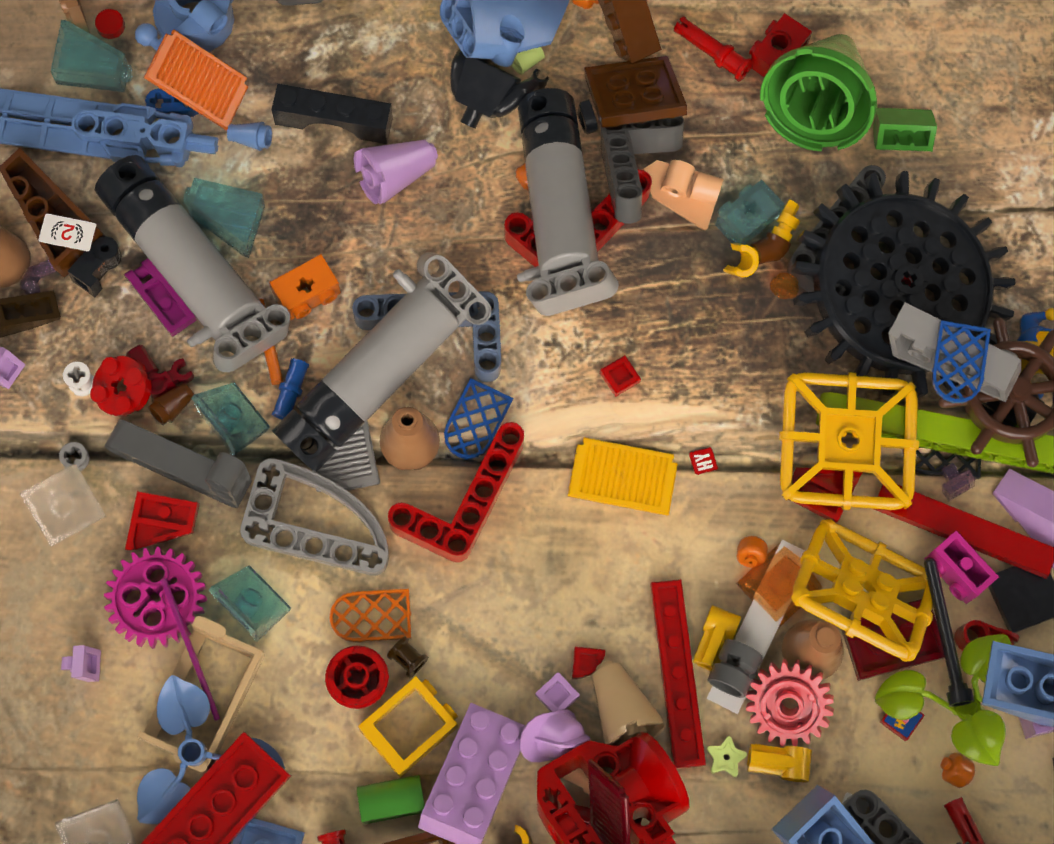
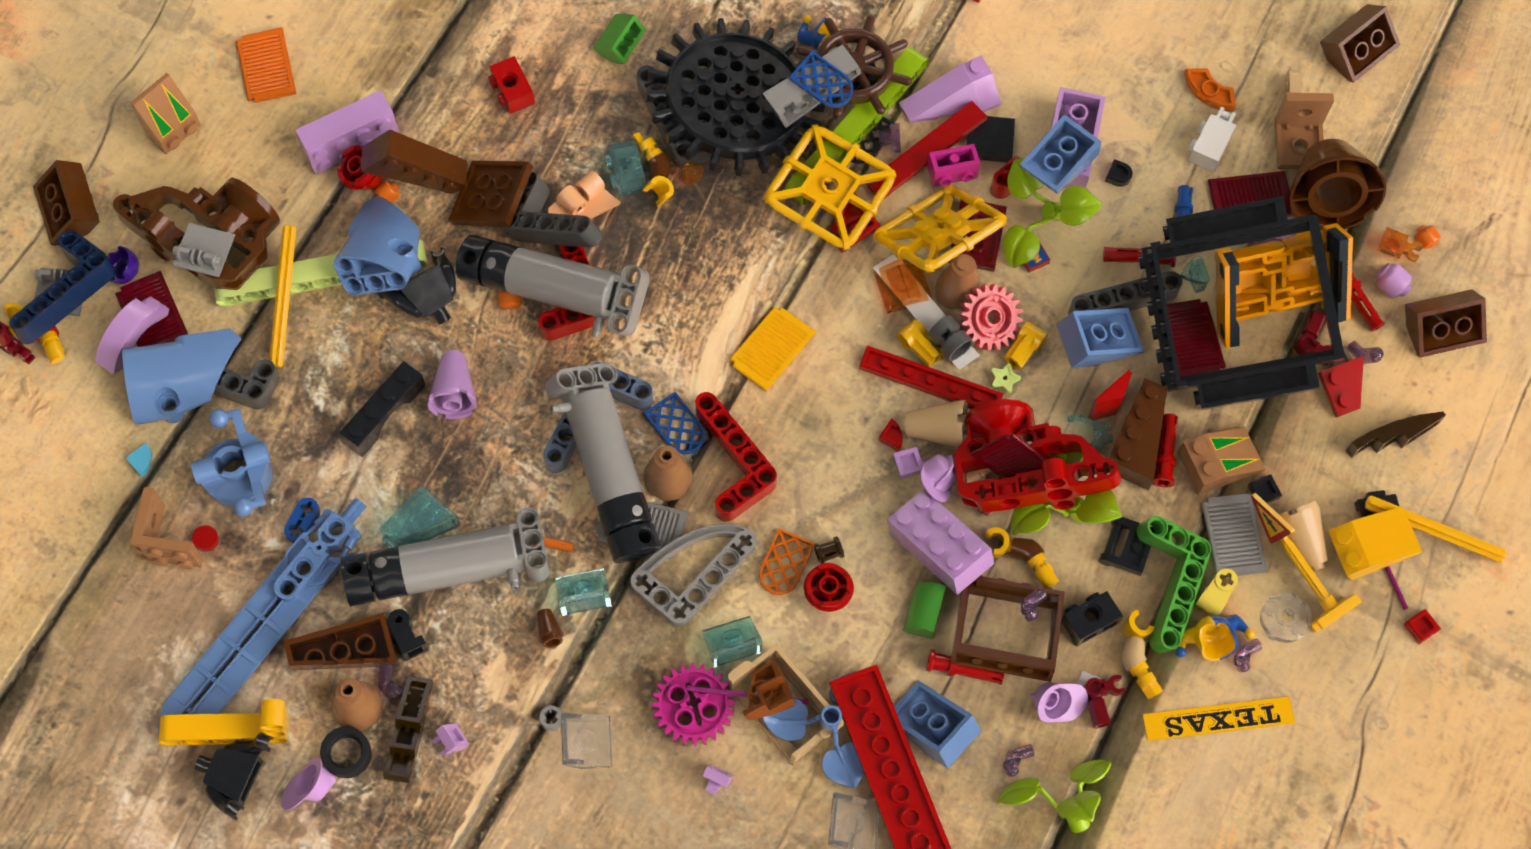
camera: 60 degrees left, 5 degrees down
(67, 232) = (374, 636): white sticker -> none
(72, 374) = (490, 678): white bush -> none
(88, 61) = (230, 565): clear light blue slope -> none
(105, 384) = (501, 656): red plate -> none
(159, 520) = (635, 676): red wing -> none
(160, 298) = (458, 599): magenta plate -> none
(162, 381) = (511, 635): dark red bar -> none
(197, 78) = (298, 489): orange window -> none
(201, 670) = (768, 692): none -> dark orange slope
(220, 479) = (631, 619): dark grey beam -> none
(253, 135) = (364, 475): medium blue cone -> none
(290, 388) = (584, 539): blue pin -> none
(316, 277) = (508, 479): orange brick -> none
(383, 747) = (883, 596): yellow window -> none
(587, 117) = (490, 233): black tile -> none
(620, 375) = (697, 313): red tile -> none
(703, 461) = (788, 290): red sticker -> none
(723, 54) = (494, 123): red pin -> none
(751, 551) = (870, 292): orange piece -> none
(820, 95) = (569, 71): bright green cone -> none
(957, 770) = (1084, 241): orange piece -> none
(958, 693) = (1038, 208): black piece -> none

